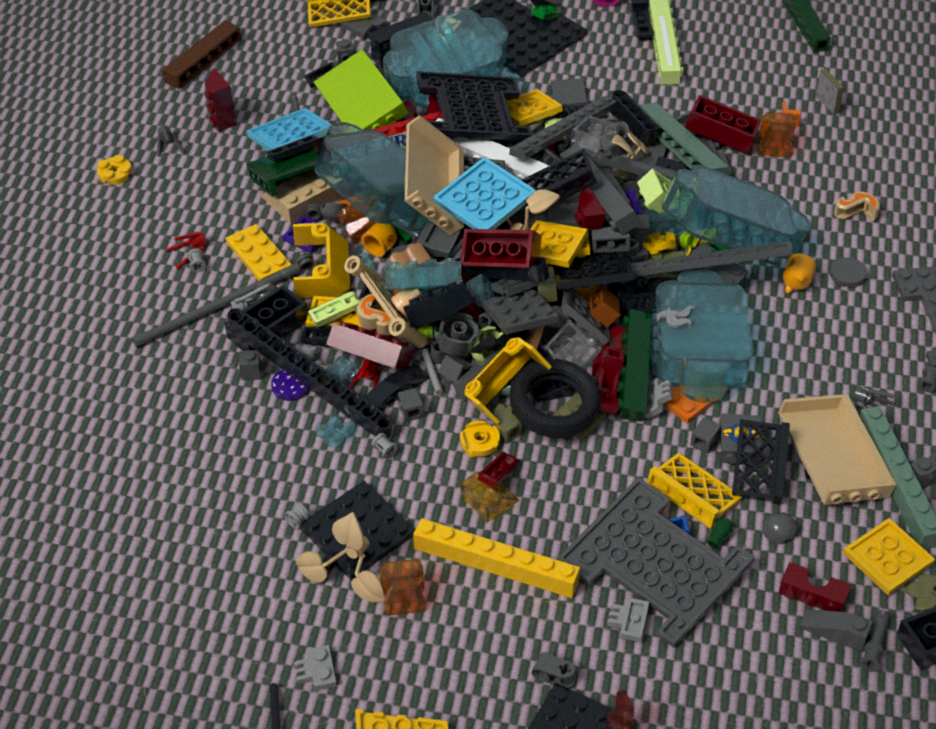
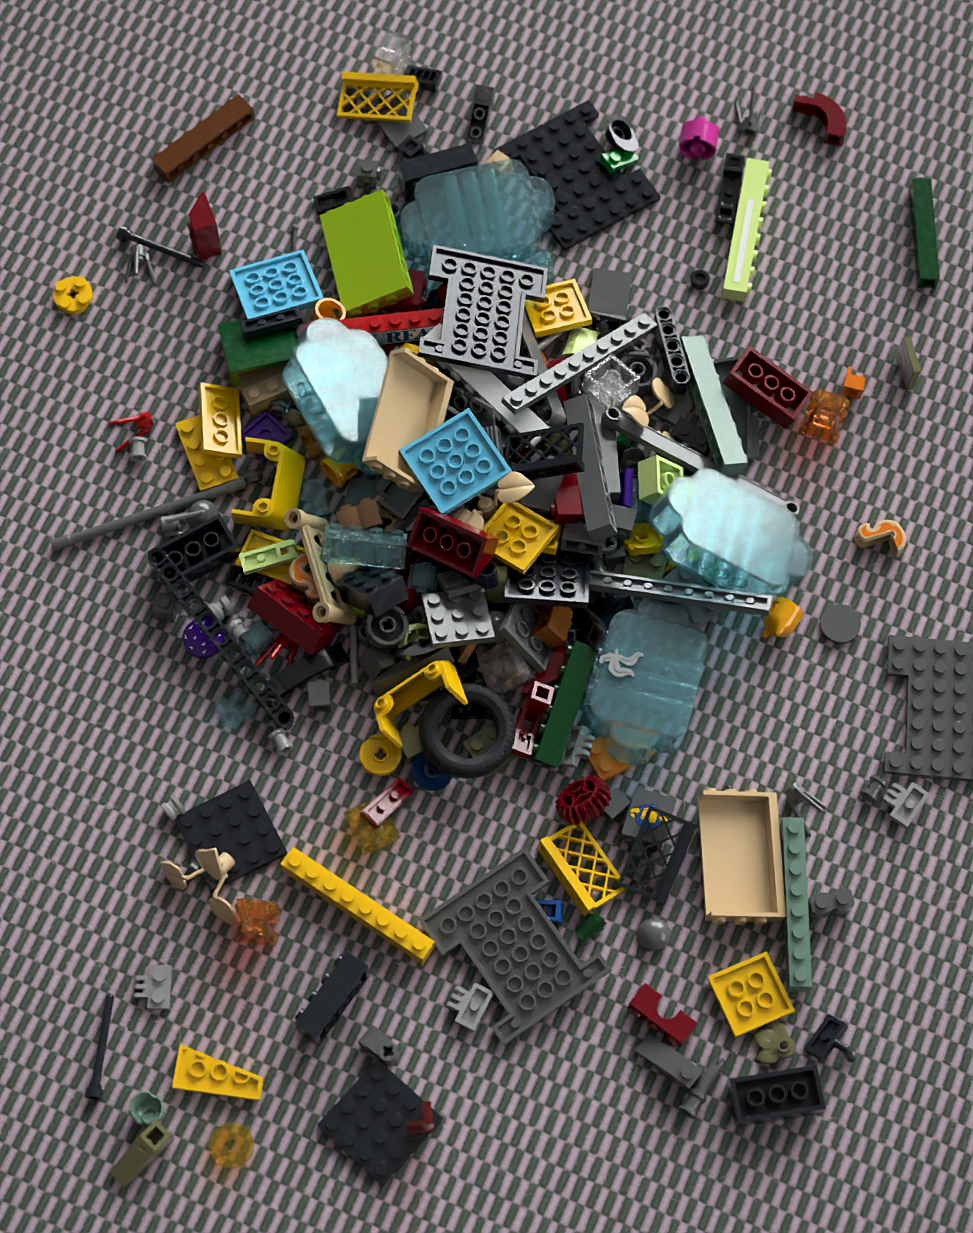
camera: 10 degrees right, 20 degrees up
(150, 123) = (125, 234): none -> black piece
(265, 226) = (220, 420): none -> yellow plate
(495, 635) = (332, 998): none -> black brick
(522, 436) = (424, 779): none -> dark blue dish
(638, 75) = (699, 279): none -> black tile
(678, 431) = (583, 800): none -> dark red gear

